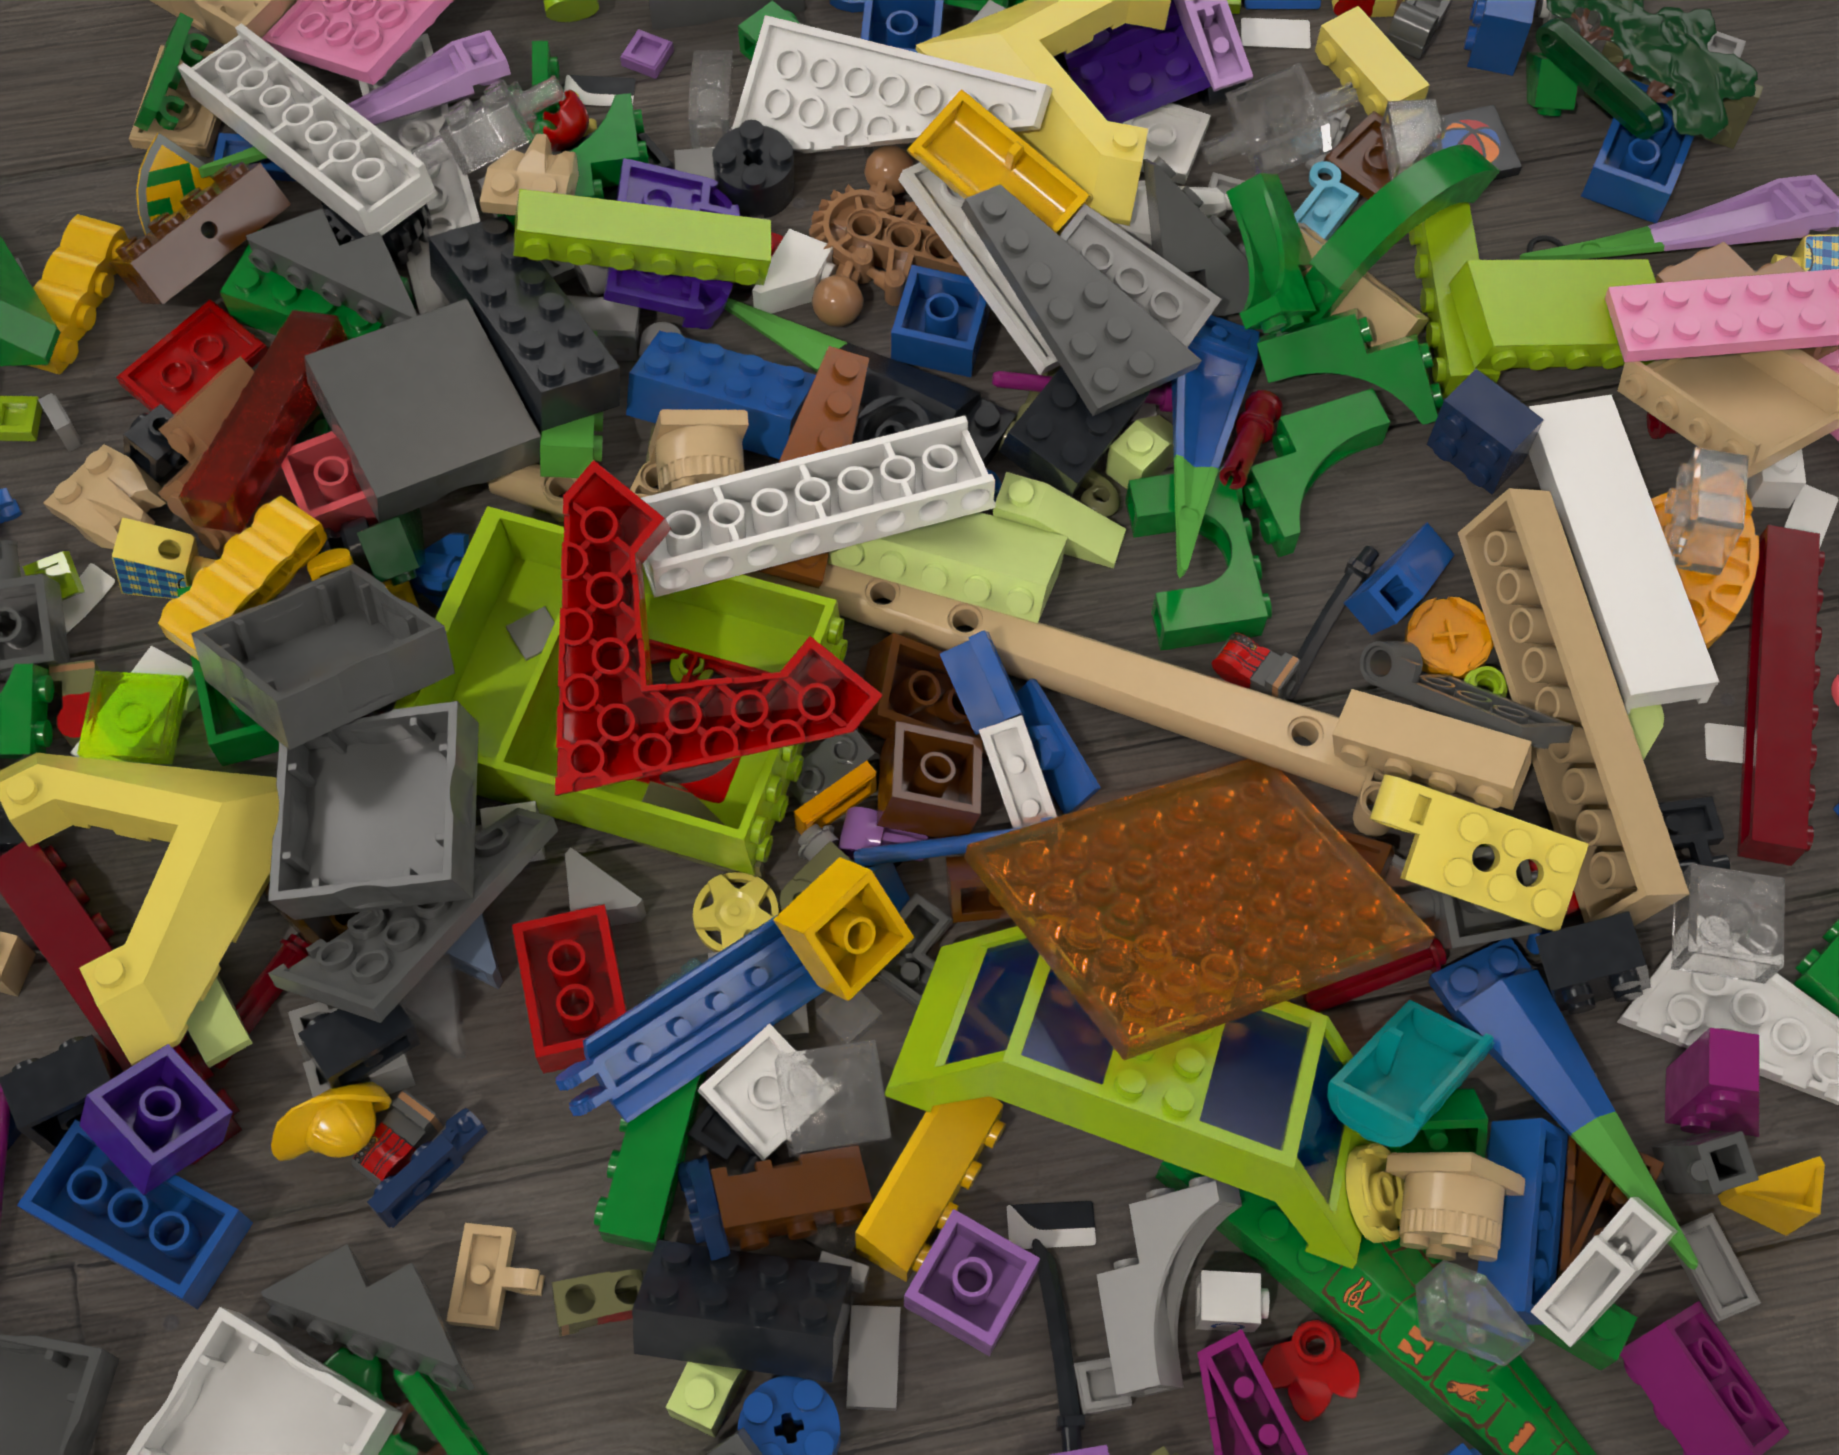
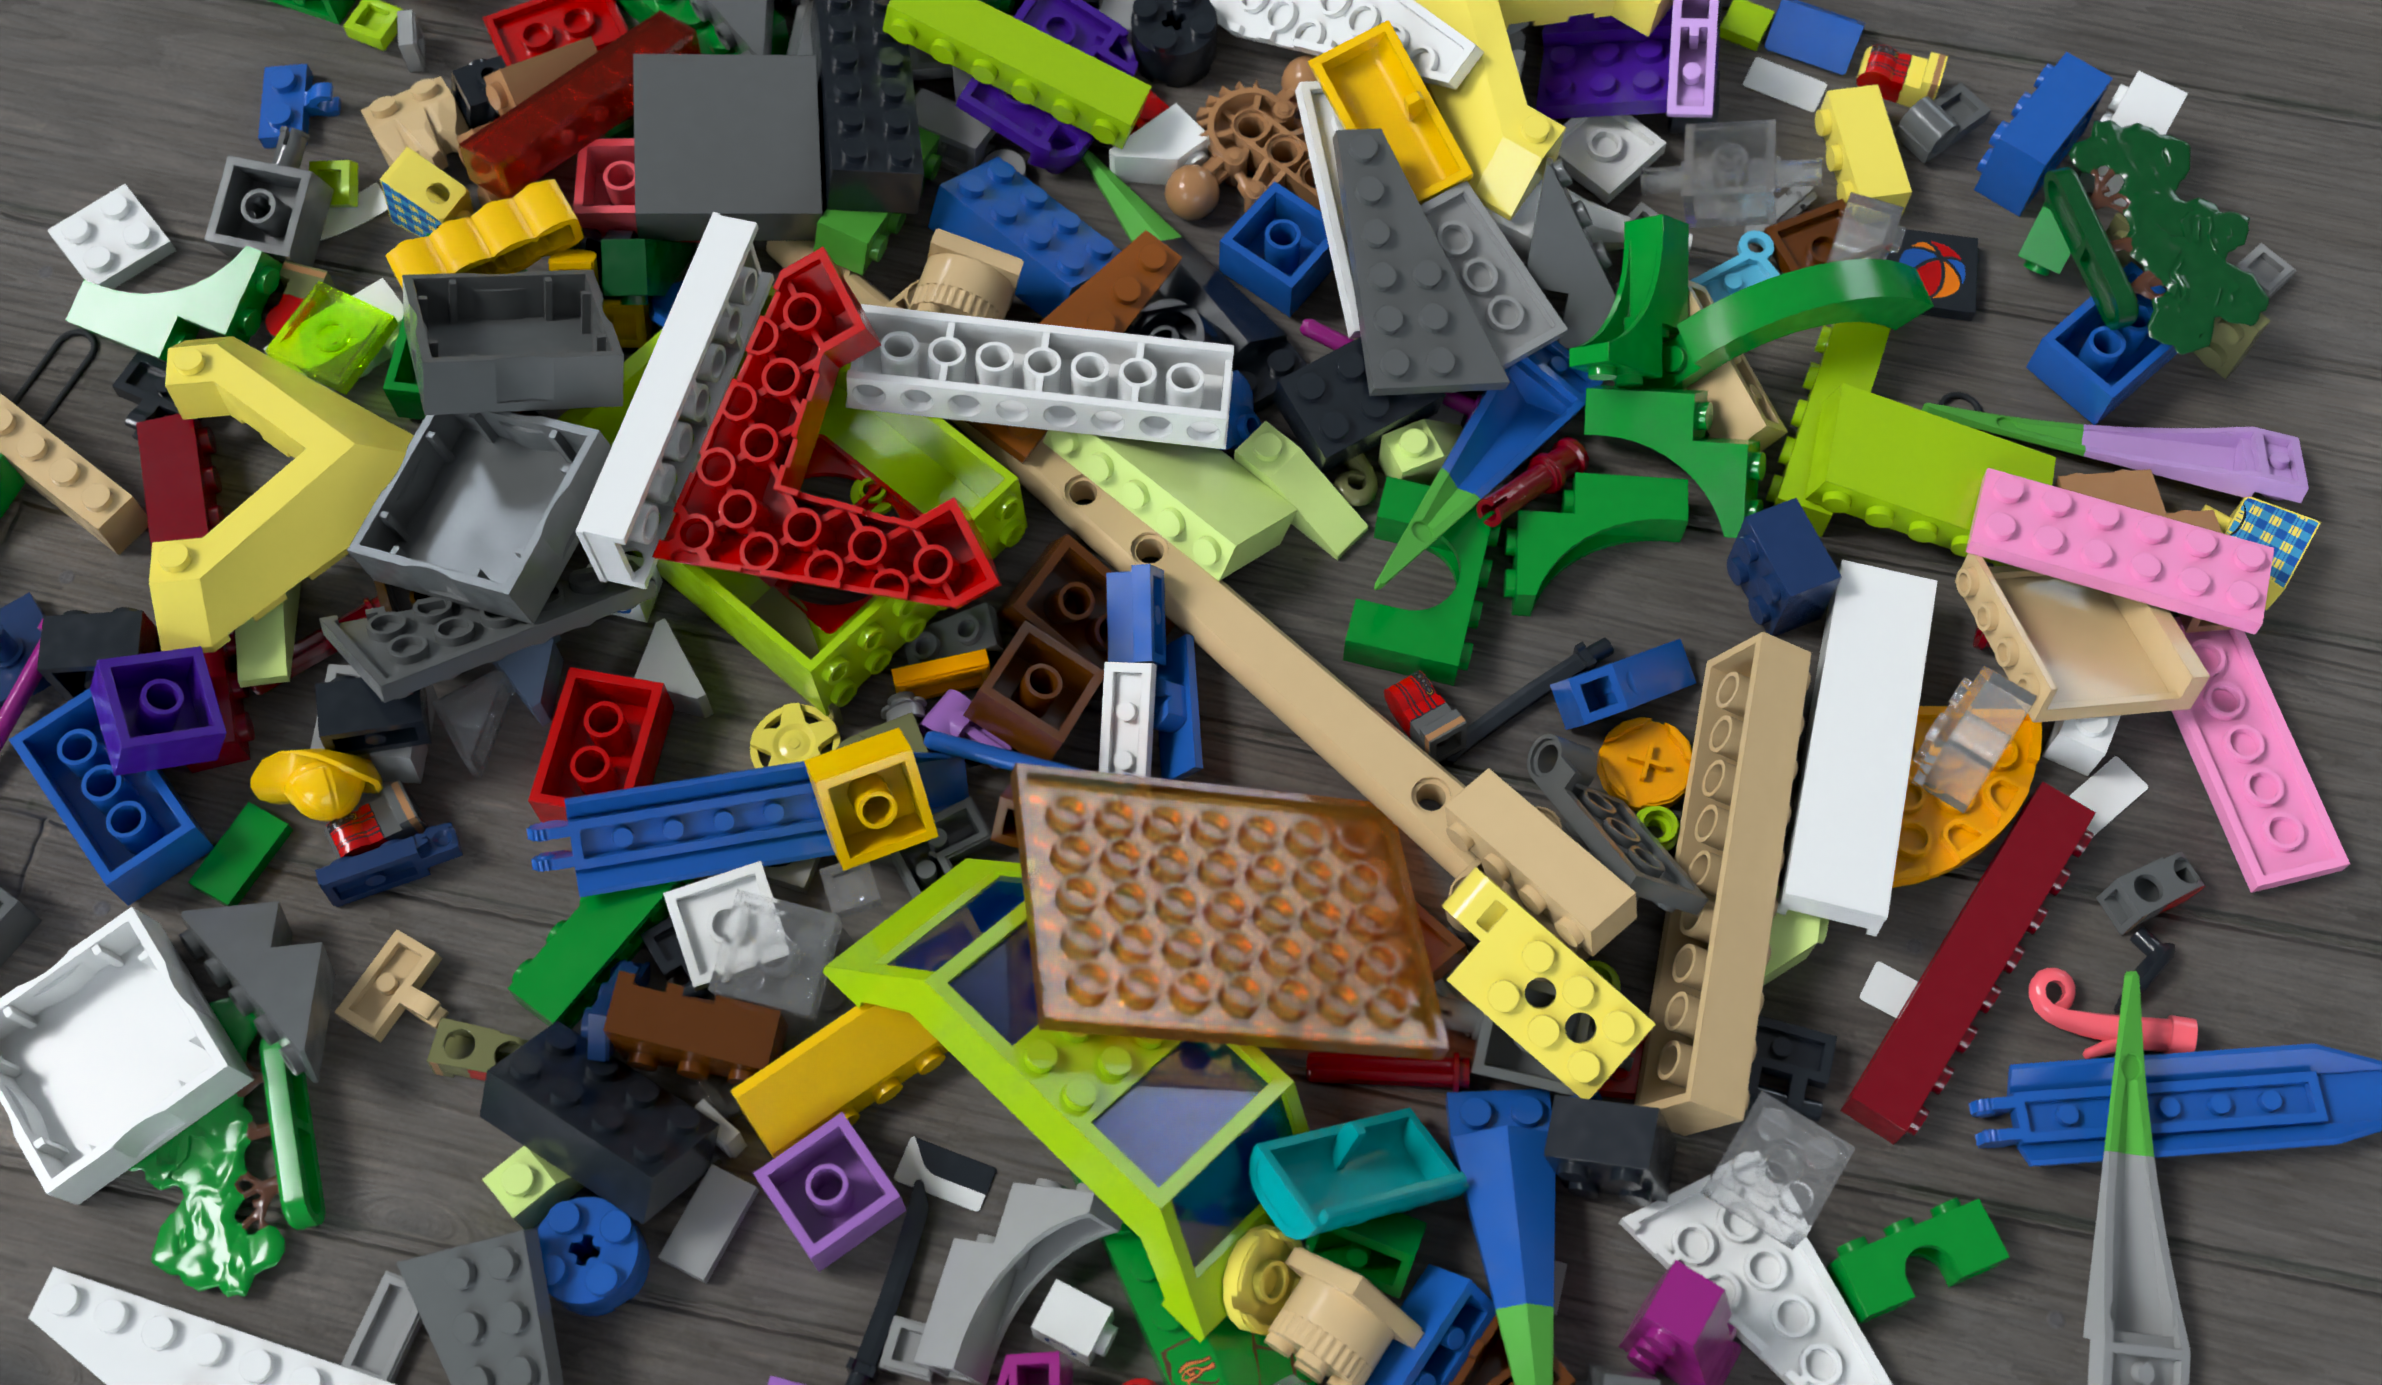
camera: 25 degrees right, 0 degrees up
(281, 1220) = (240, 855): none -> green tile
(508, 652) = (675, 403): none -> white tile

